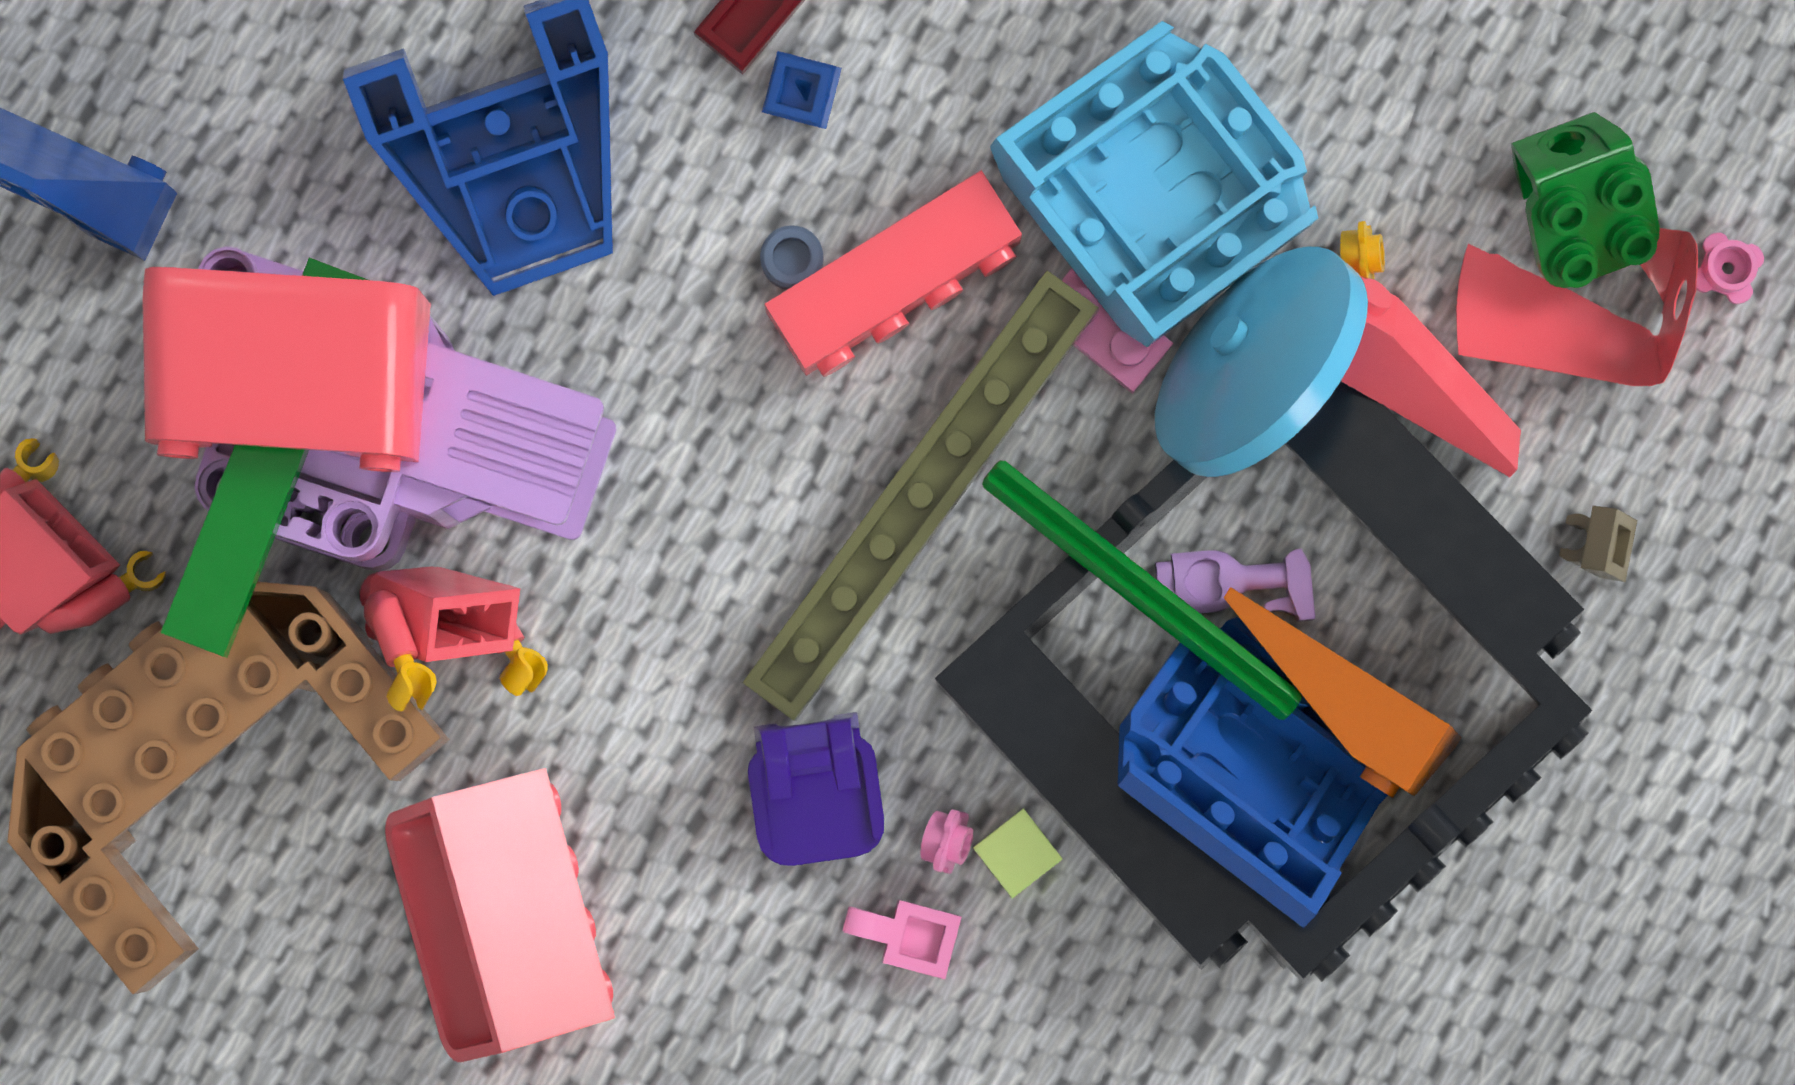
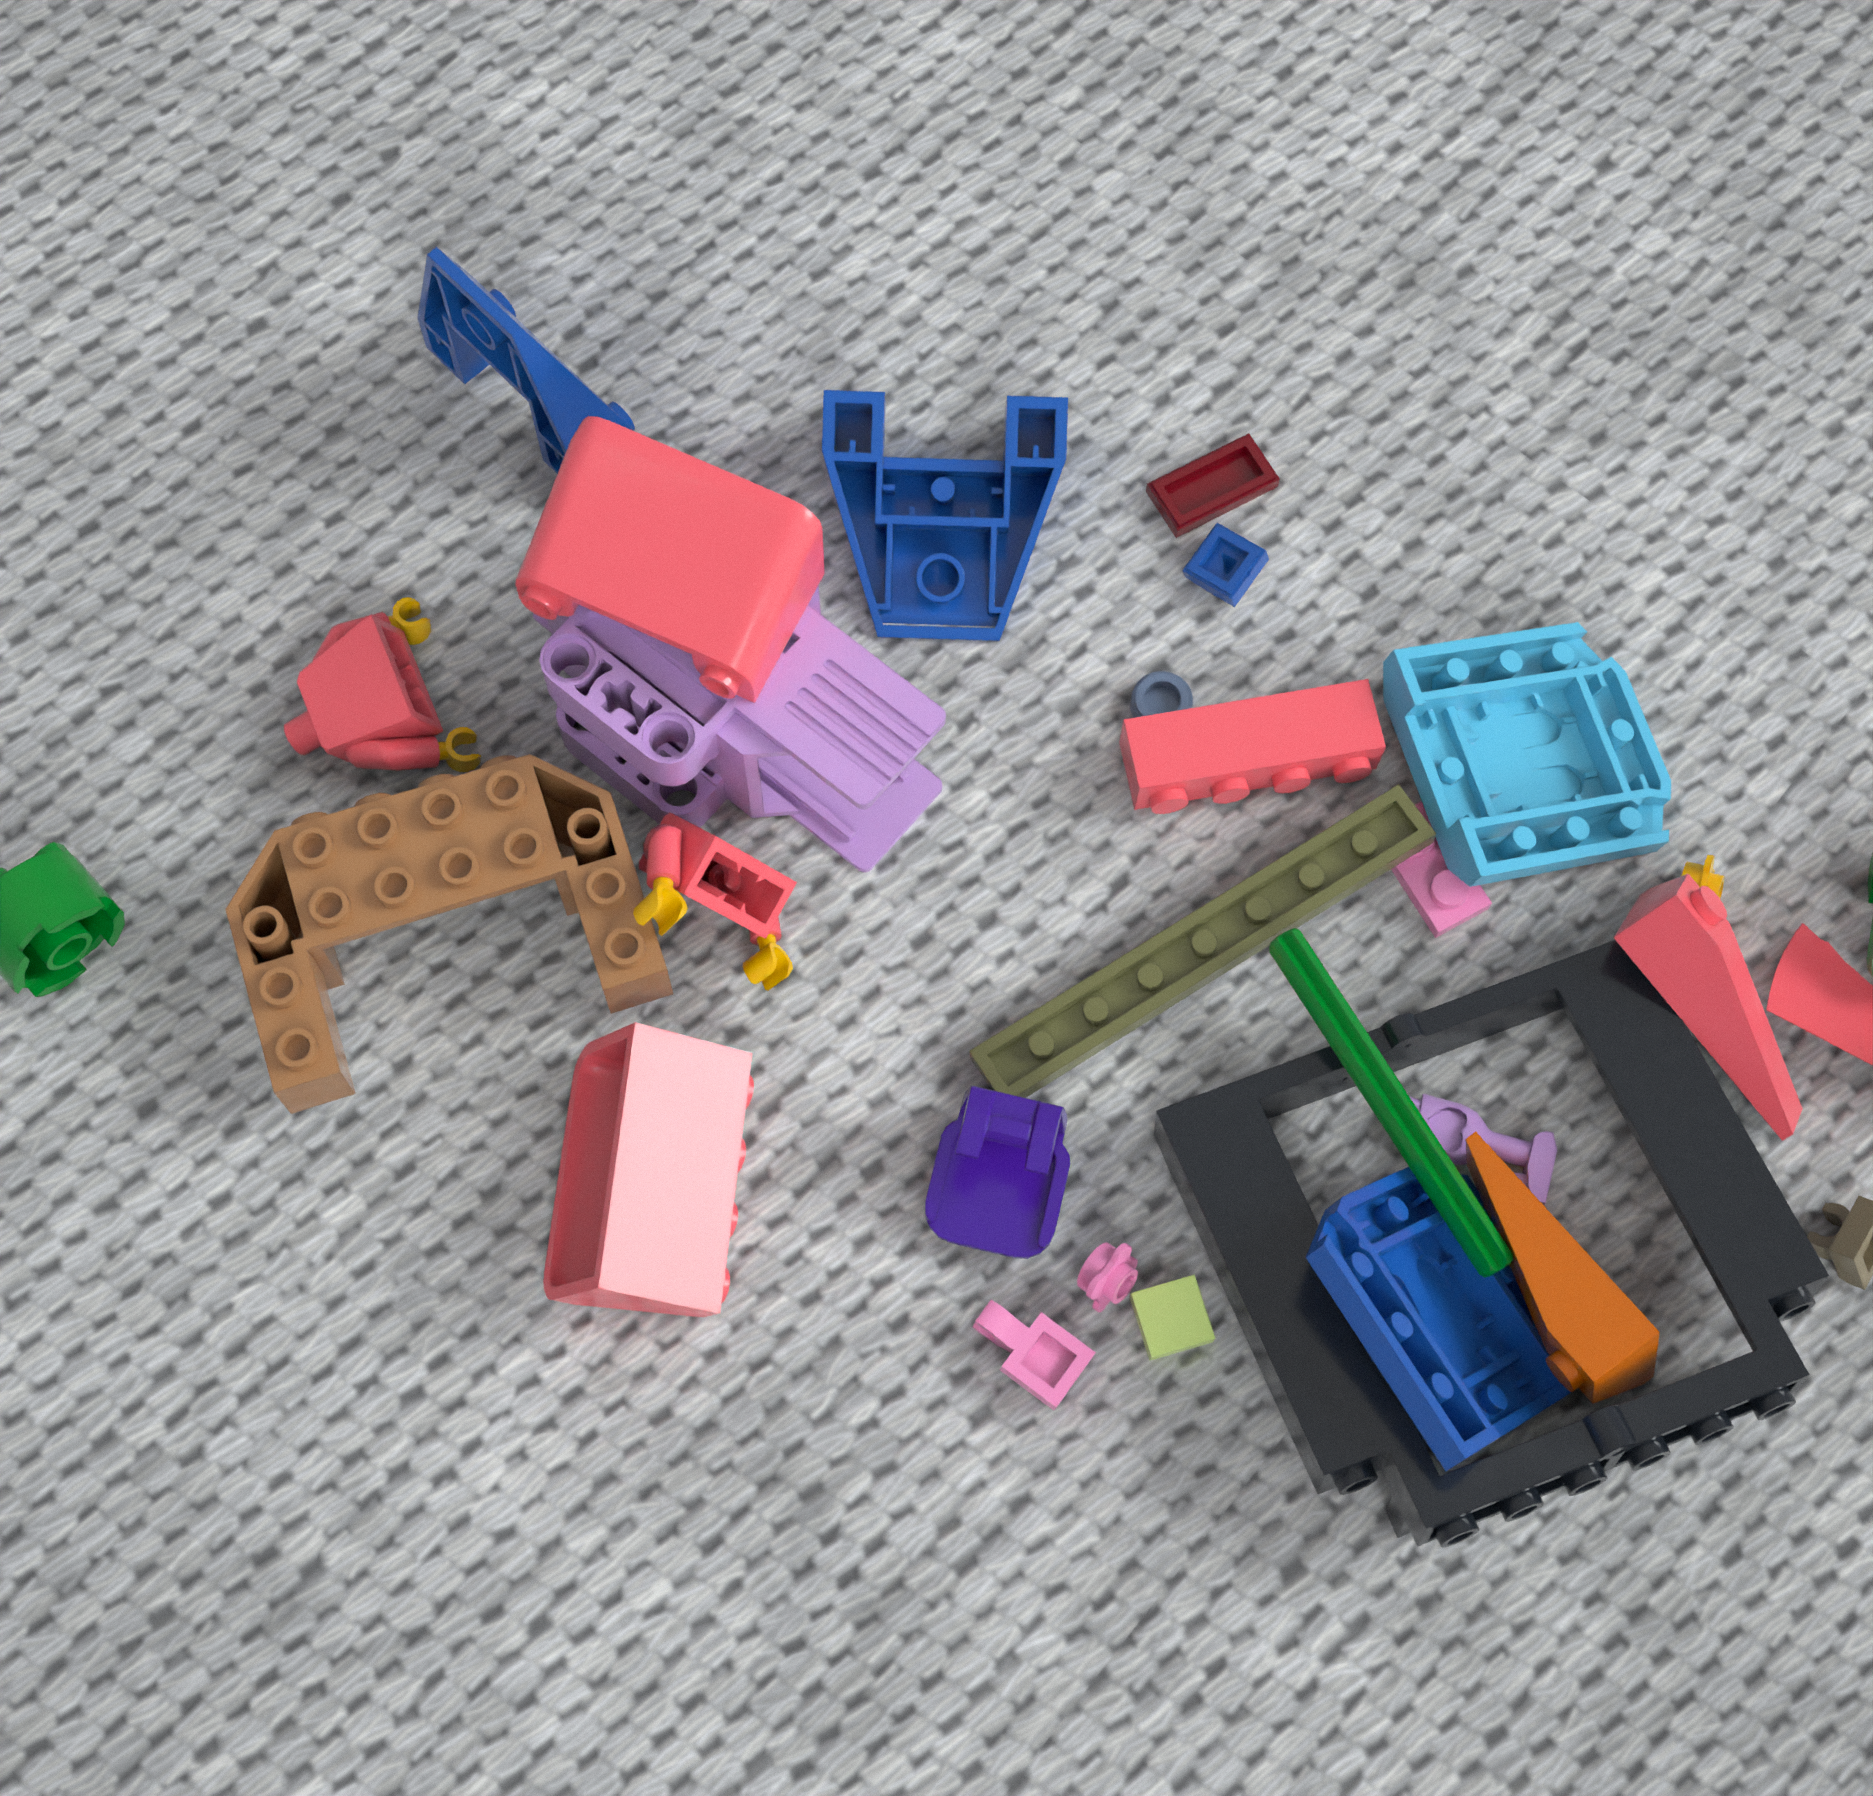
camera: 25 degrees right, 15 degrees down
(237, 535) = (555, 706): green tile -> none
(1261, 361) = (1580, 927): medium azure dish -> none

